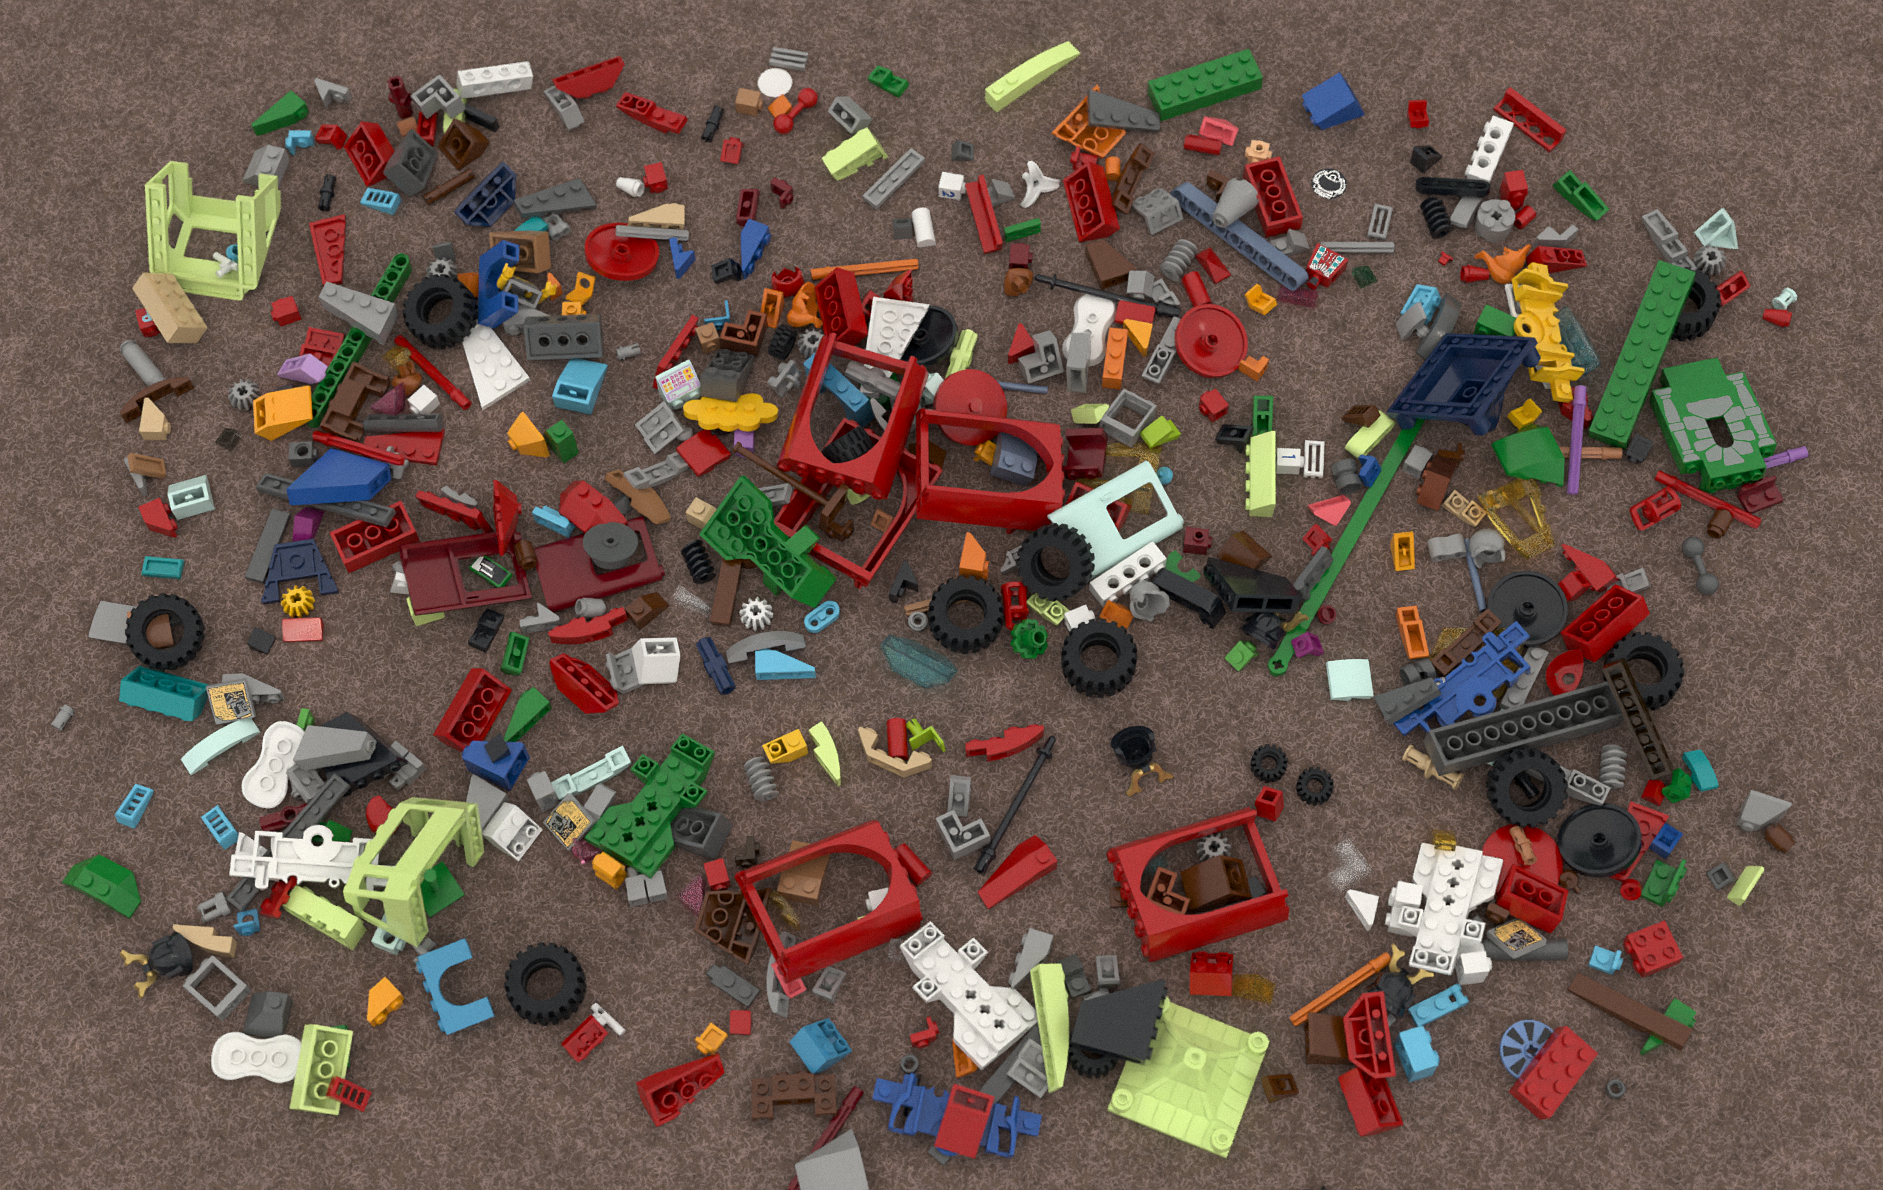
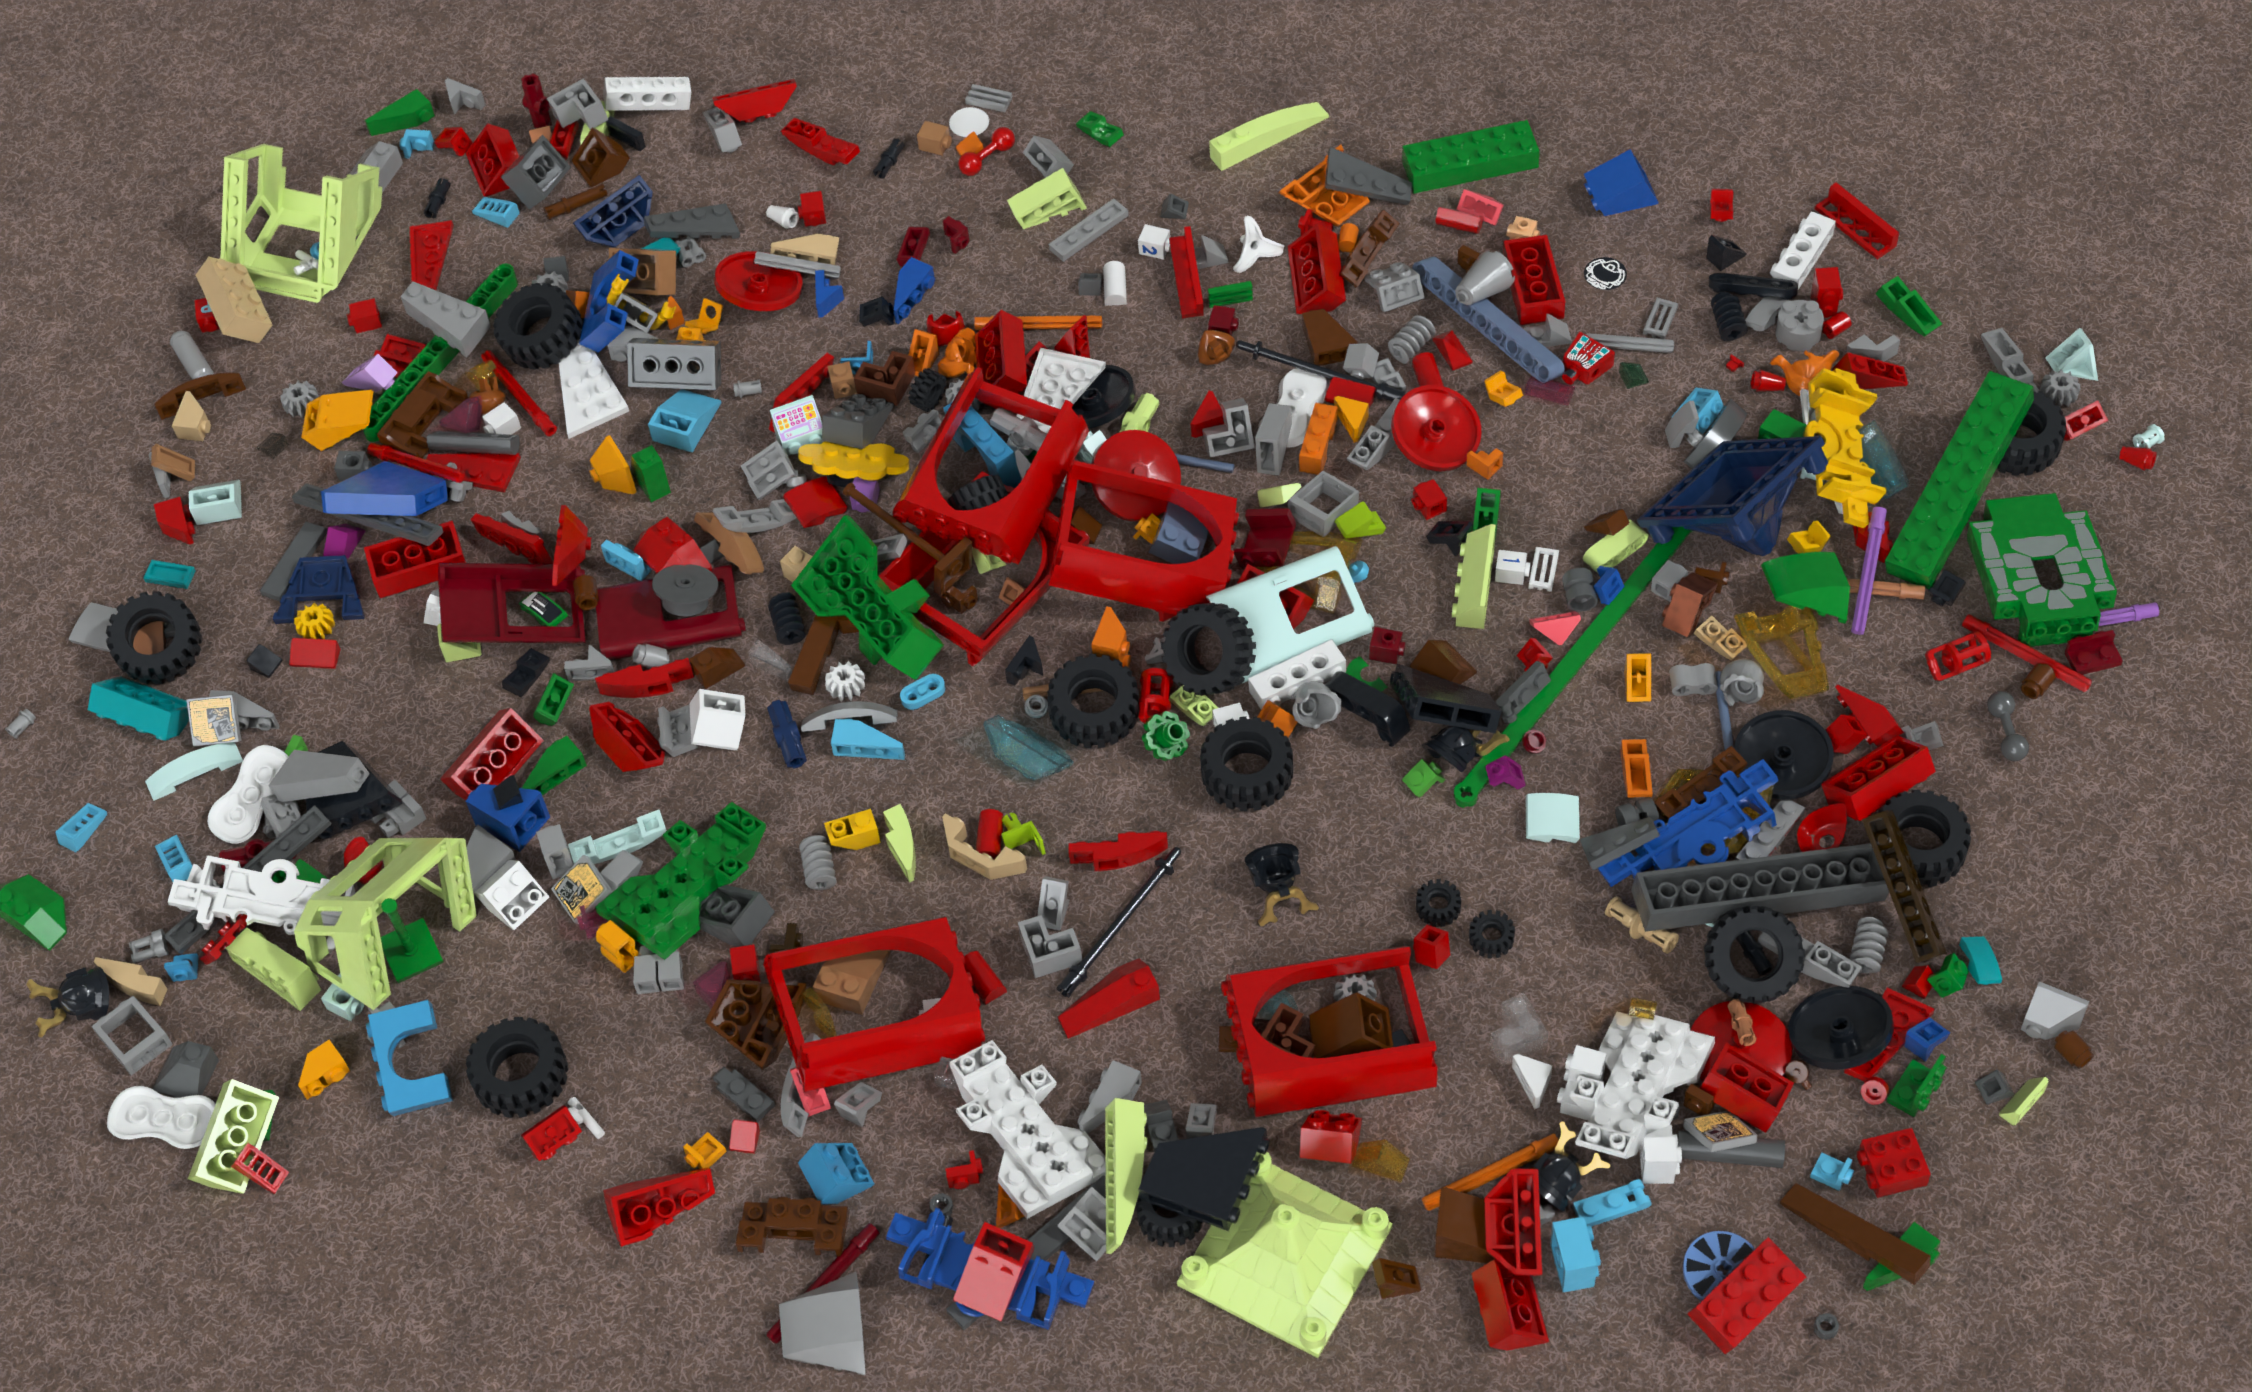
camera: 10 degrees right, 10 degrees down
(731, 150) = (905, 187): red bracket -> none

